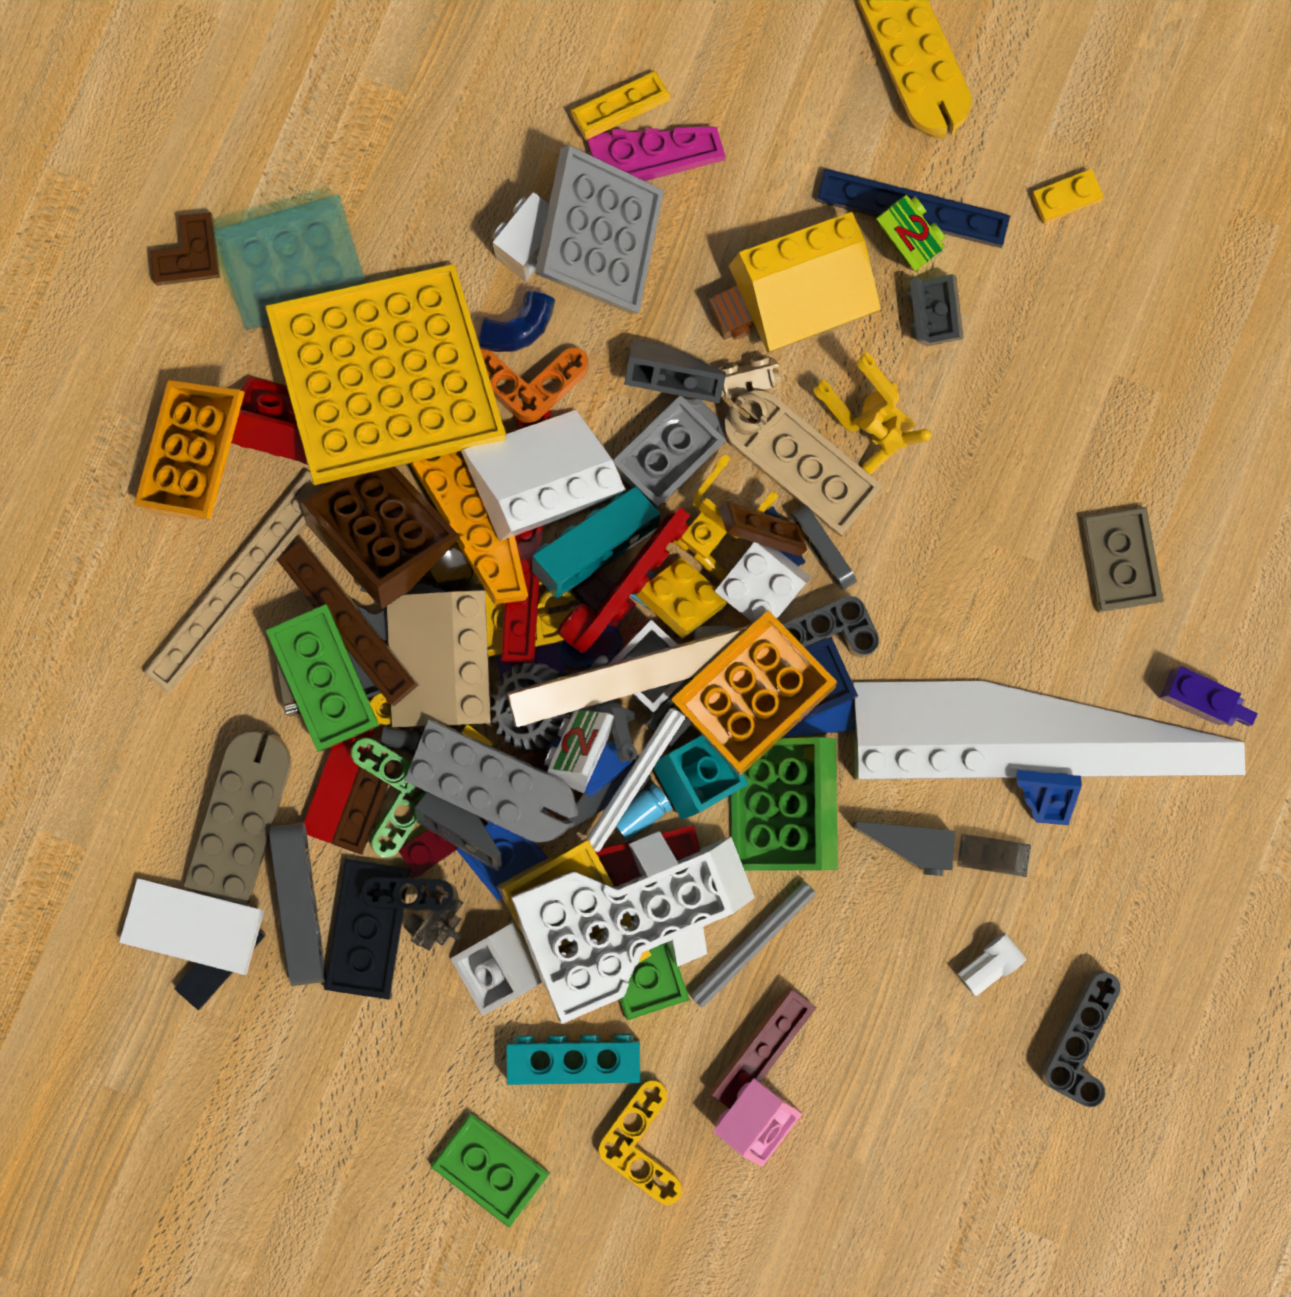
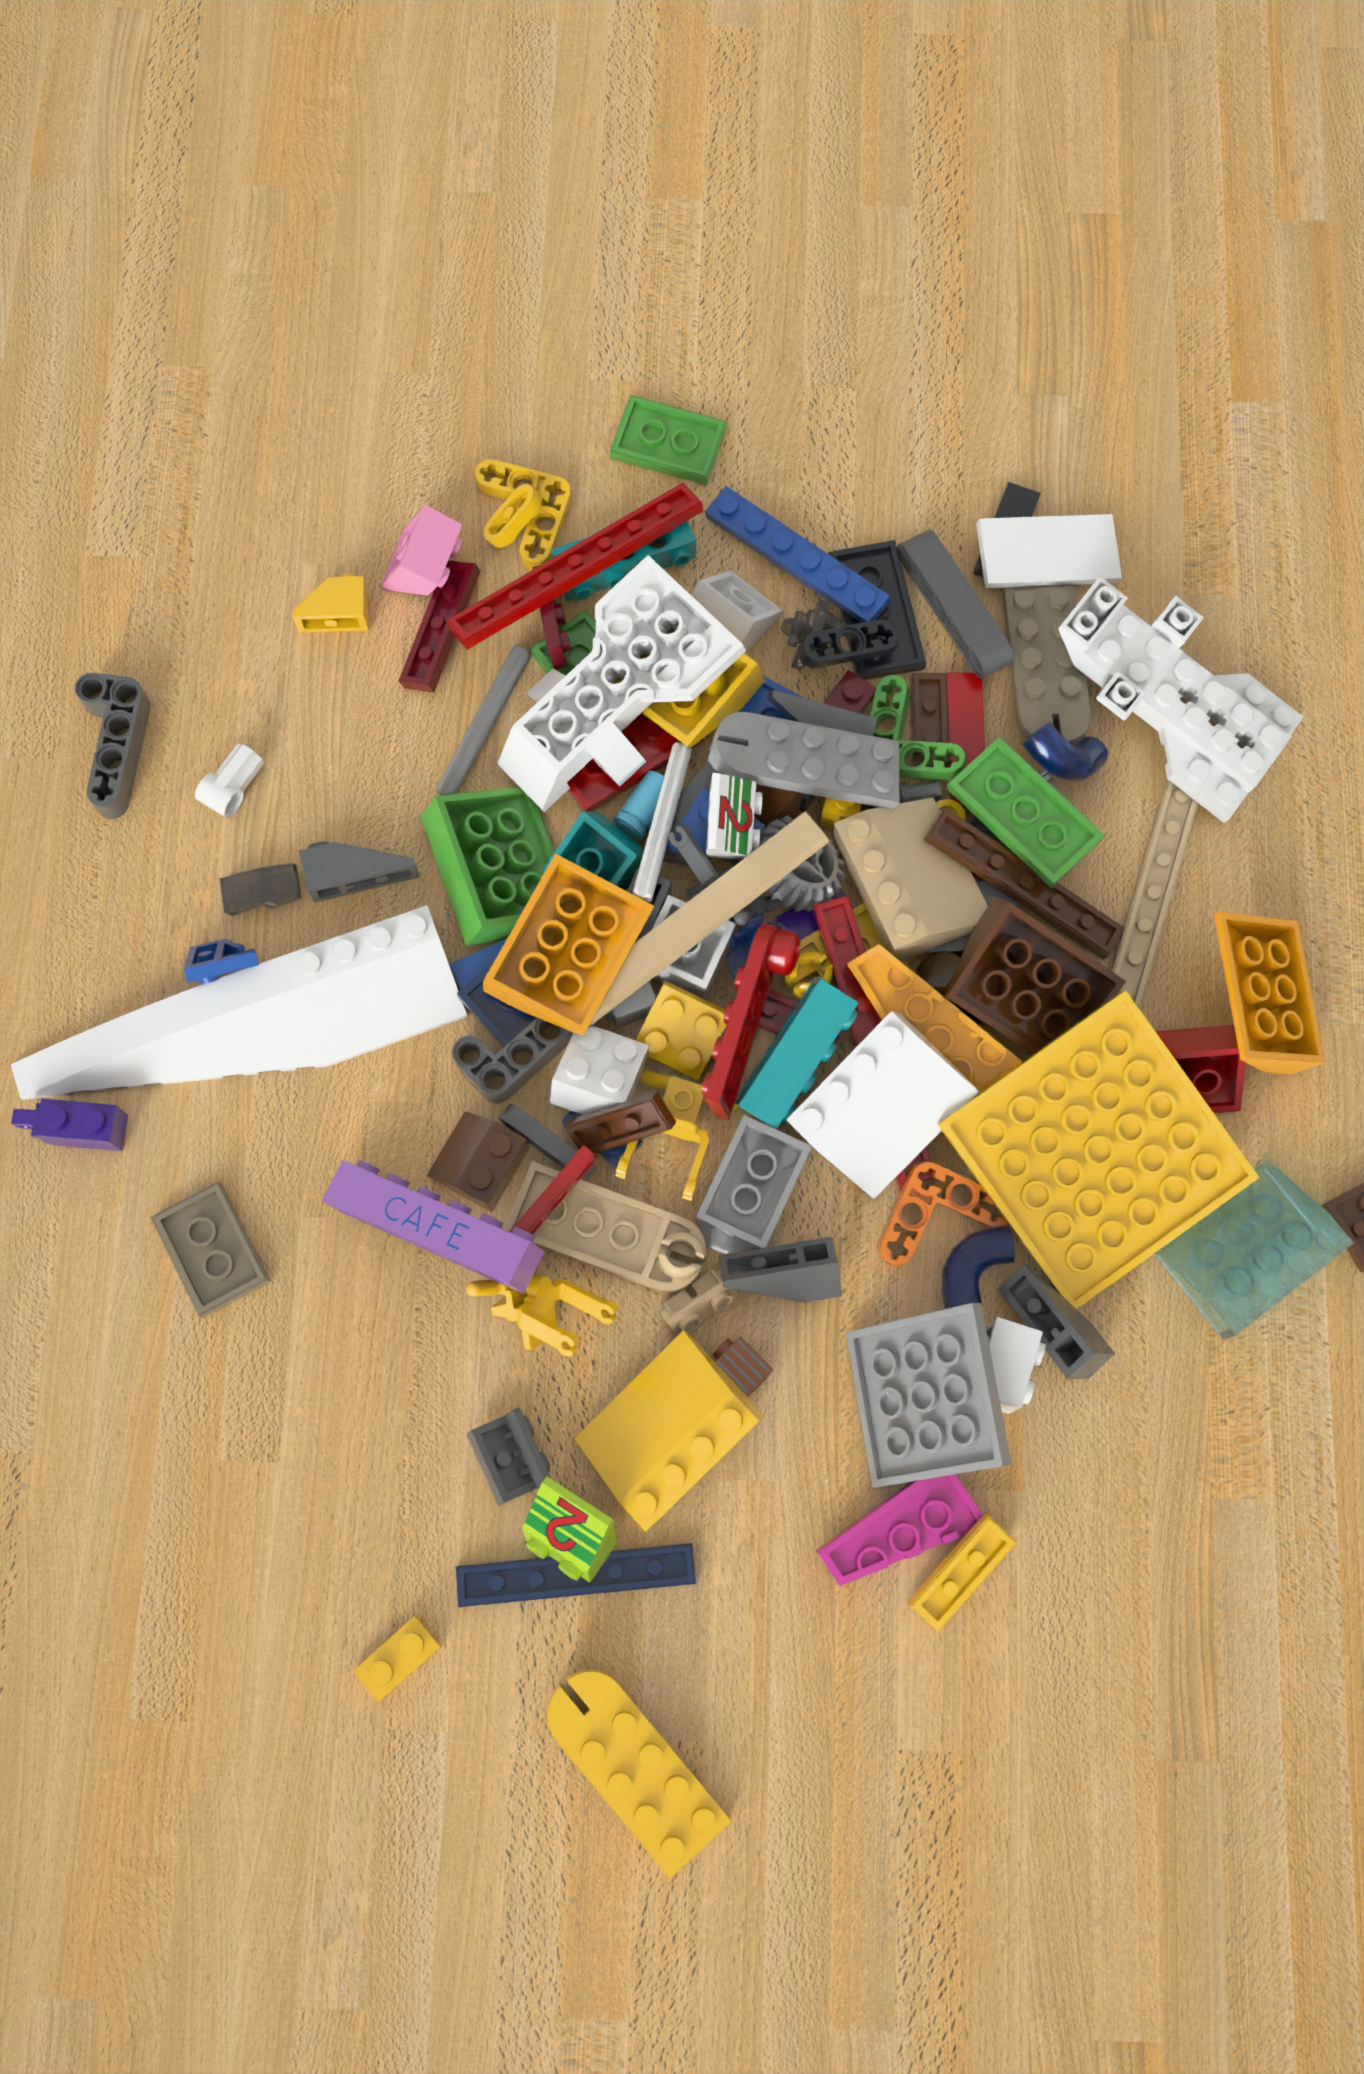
camera: 165 degrees right, 10 degrees down
(162, 771) = (1149, 674): none -> white piece
(267, 716) = (1062, 757): none -> clear blue cylinder
(419, 1004) = (797, 556): none -> blue plate
(472, 254) = (1067, 1334): none -> dark grey slope
(623, 1053) = (574, 566): none -> red tile
(659, 1136) = (513, 516): none -> yellow plate
(661, 1017) = (556, 639): none -> dark red plate
(847, 1103) = (335, 606): none -> yellow slope
(849, 485) = (557, 1191): none -> red tile
(885, 553) = (479, 1160): none -> reddish brown slope
(940, 501) = (434, 1226): none -> medium lavender brick

